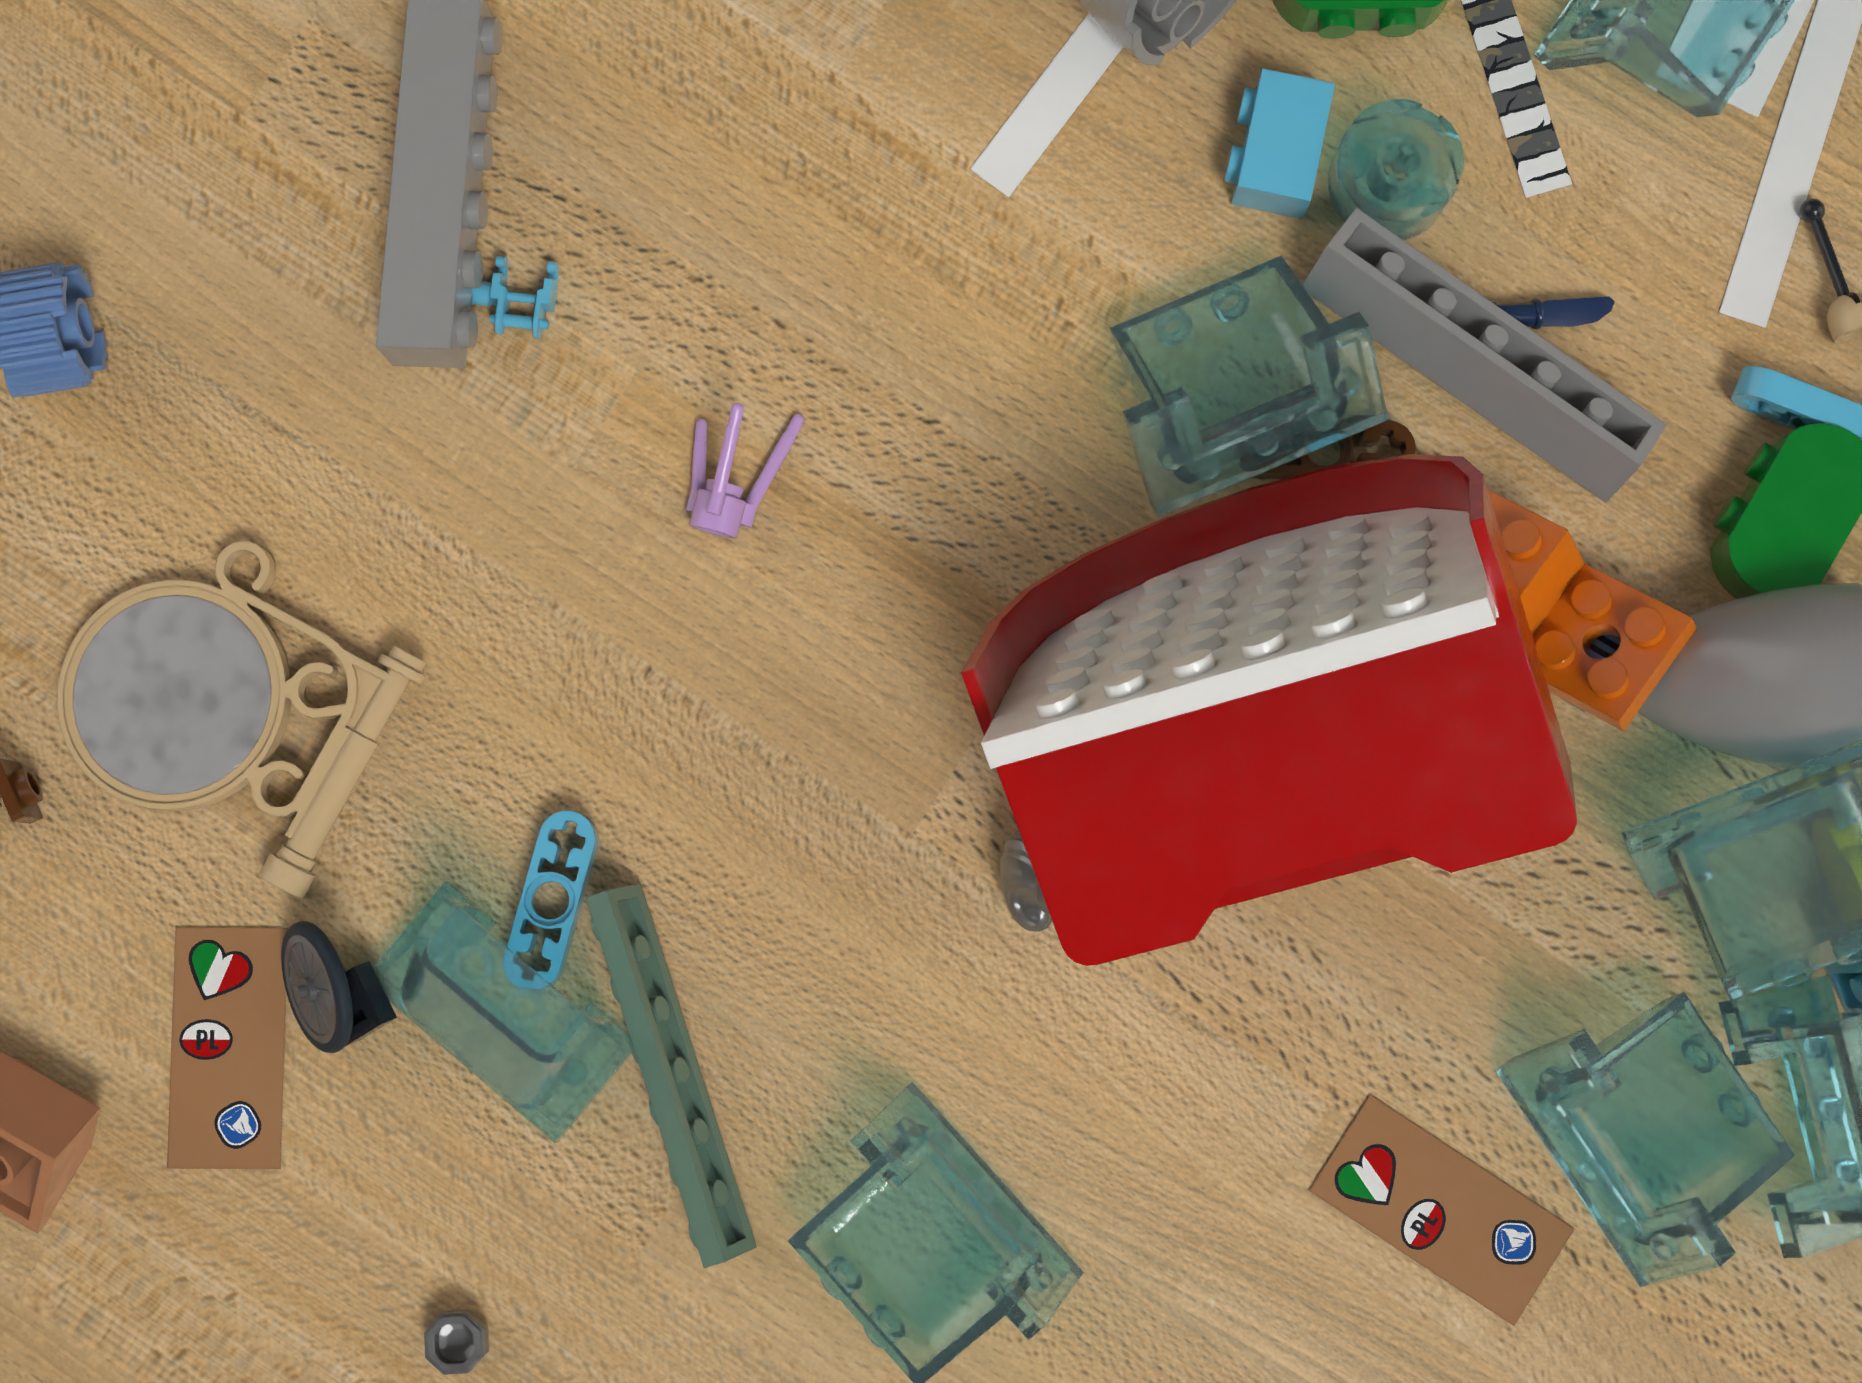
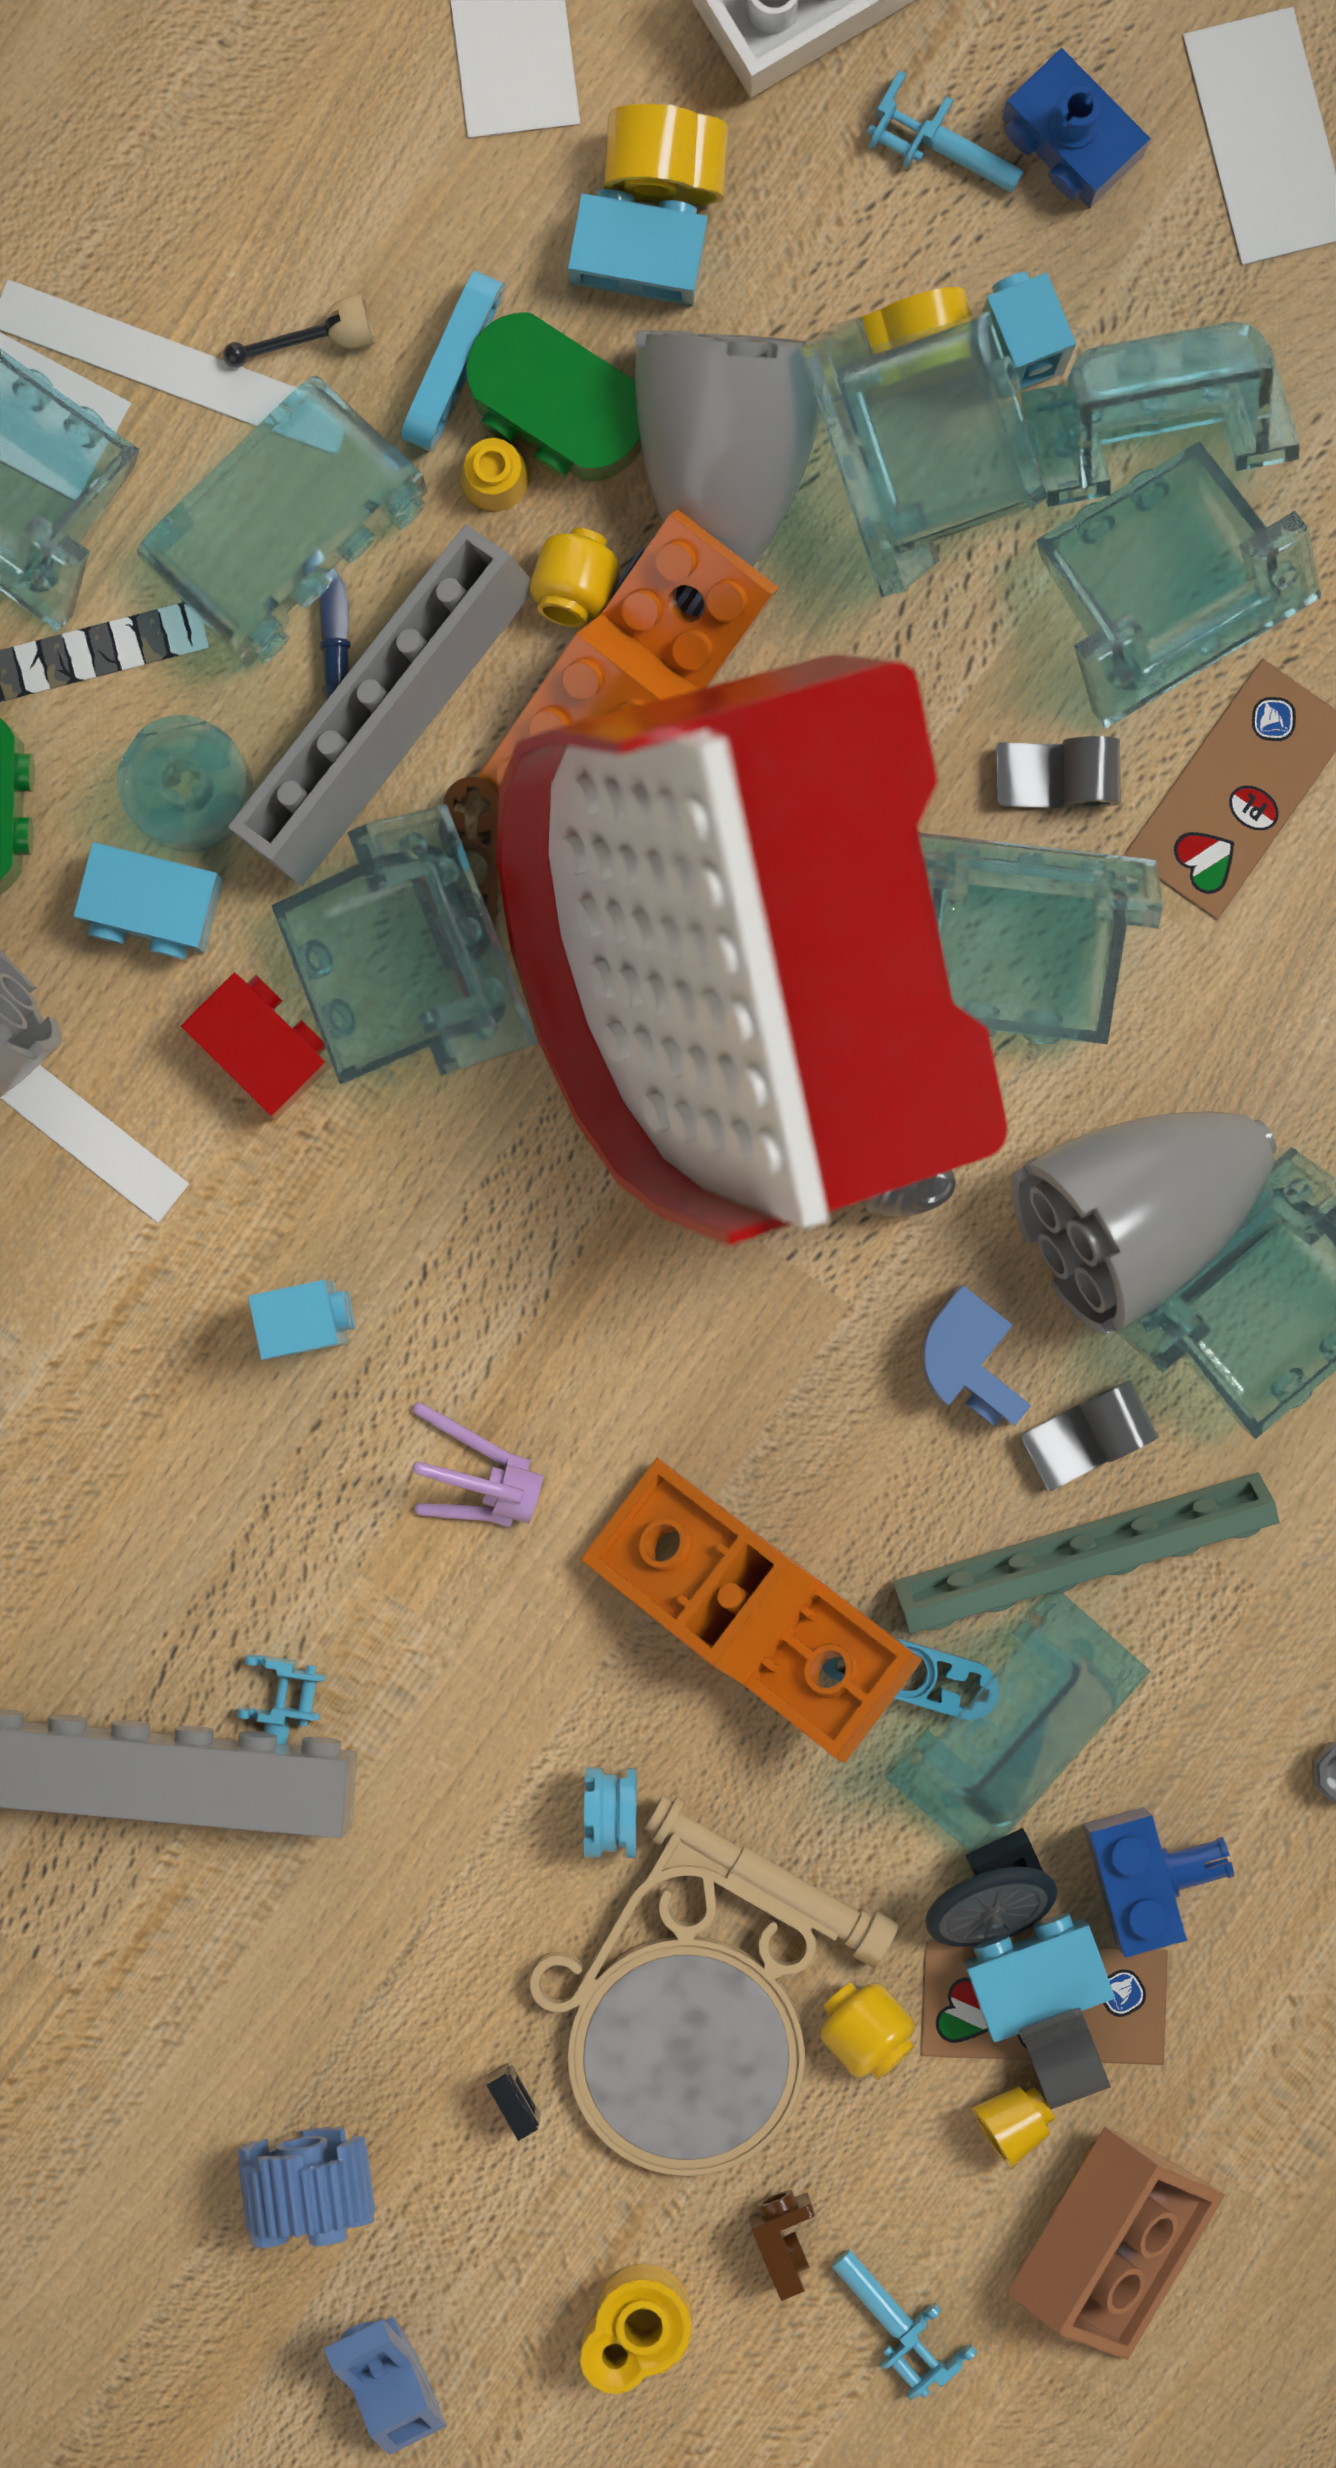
camera: 90 degrees left, 5 degrees up
(106, 1018) = (1014, 2122): none -> yellow hat
(128, 528) = (514, 2101): none -> black tile
(166, 1068) = (1065, 2058): none -> dark grey panel
(197, 869) = (867, 2030): none -> yellow head
(249, 1036) = (1037, 1975): none -> medium azure brick
(345, 1142) = (1144, 1879): none -> blue brick
(407, 611) = (609, 1812): none -> medium azure wheel
(604, 740) = (751, 1610): none -> orange bracket
(788, 1074) = (1089, 1435): none -> dark grey panel
(866, 935) = (953, 1353): none -> medium blue brick
(880, 294) = (301, 1318): none -> medium azure brick
(1018, 1119) = (1140, 1208): none -> light grey cylinder
(1145, 249) = (257, 1044): none -> red piece
(1288, 996) = (1037, 932): none -> clear light blue windscreen
(1445, 1028) = (1064, 775): none -> dark grey panel
(1618, 537) = (574, 577): none -> yellow head
(1661, 252) = (281, 518): none -> clear light blue windscreen
(1712, 460) = (494, 475): none -> yellow hat

